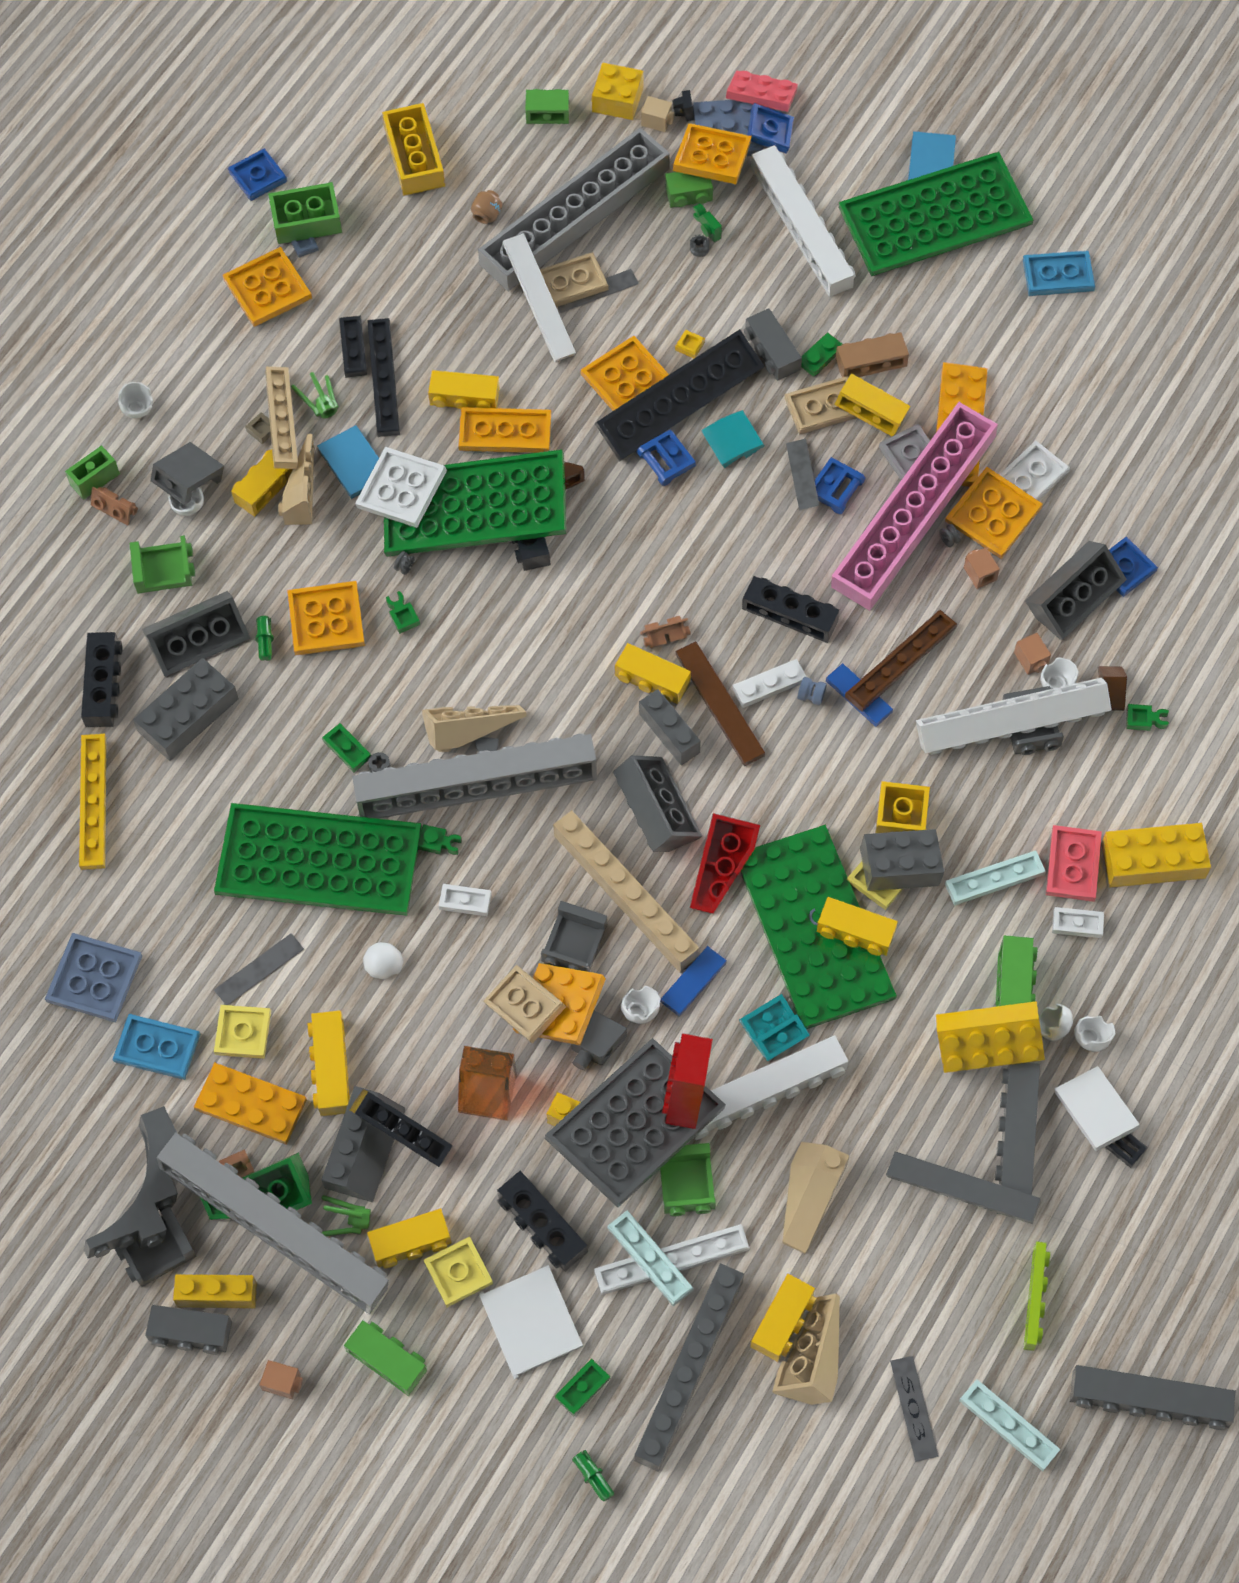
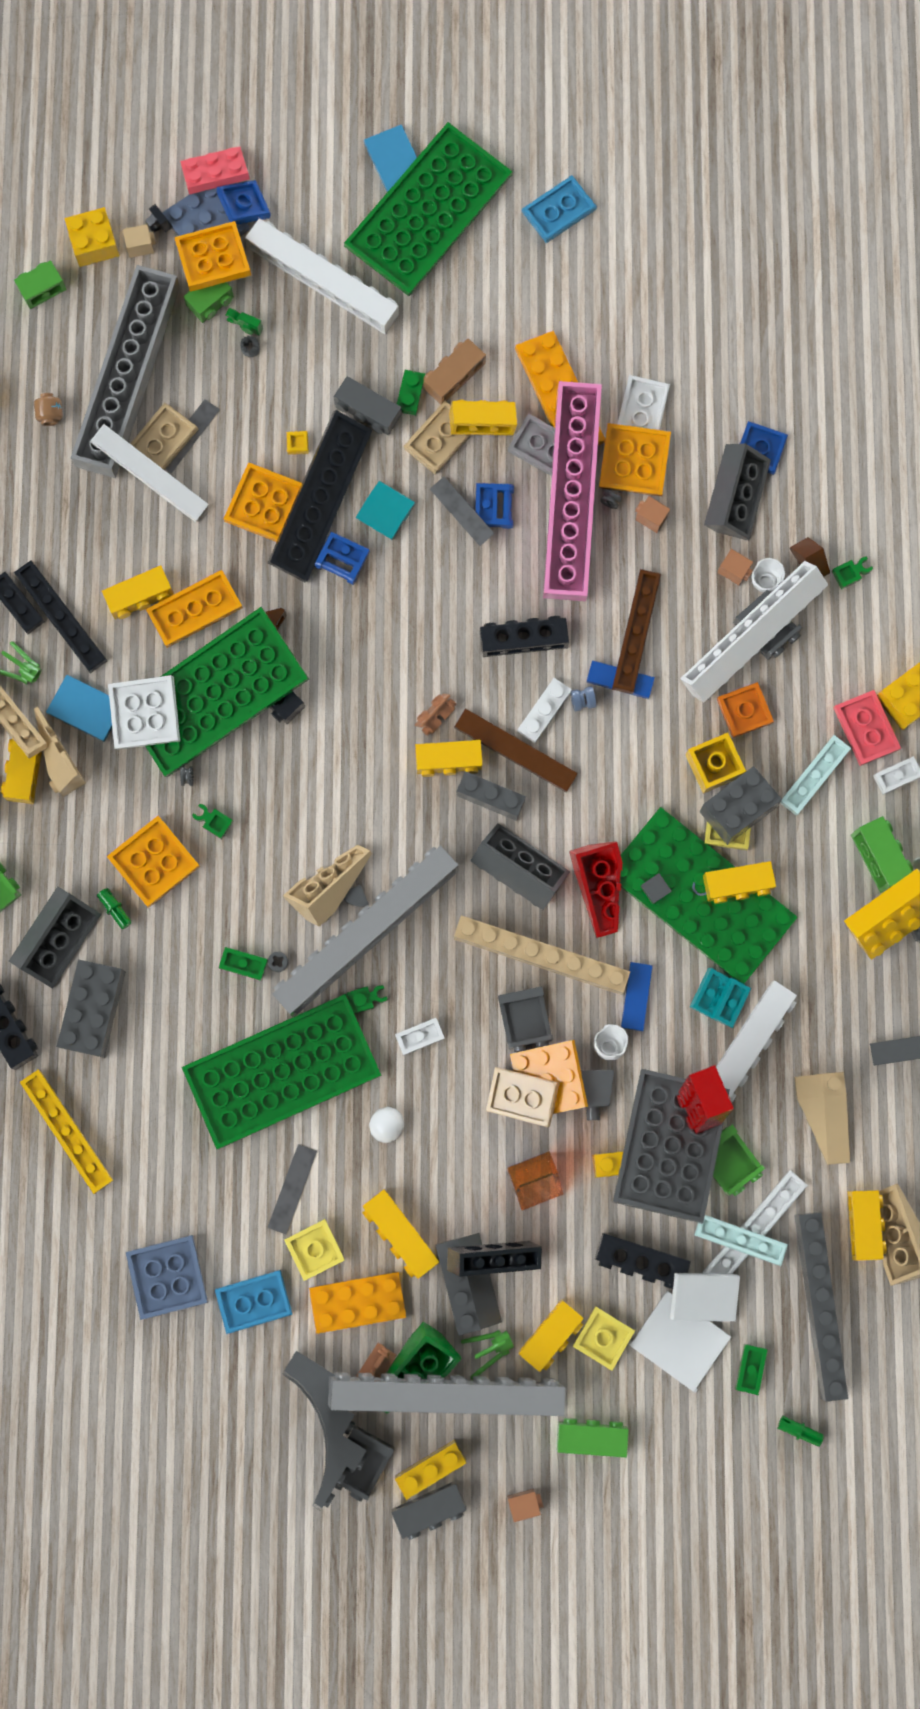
camera: 35 degrees left, 15 degrees up
(580, 1288) = (704, 1297): none -> white tile
(772, 890) = (655, 888): none -> dark grey tile
(962, 783) = (745, 710): none -> orange plate

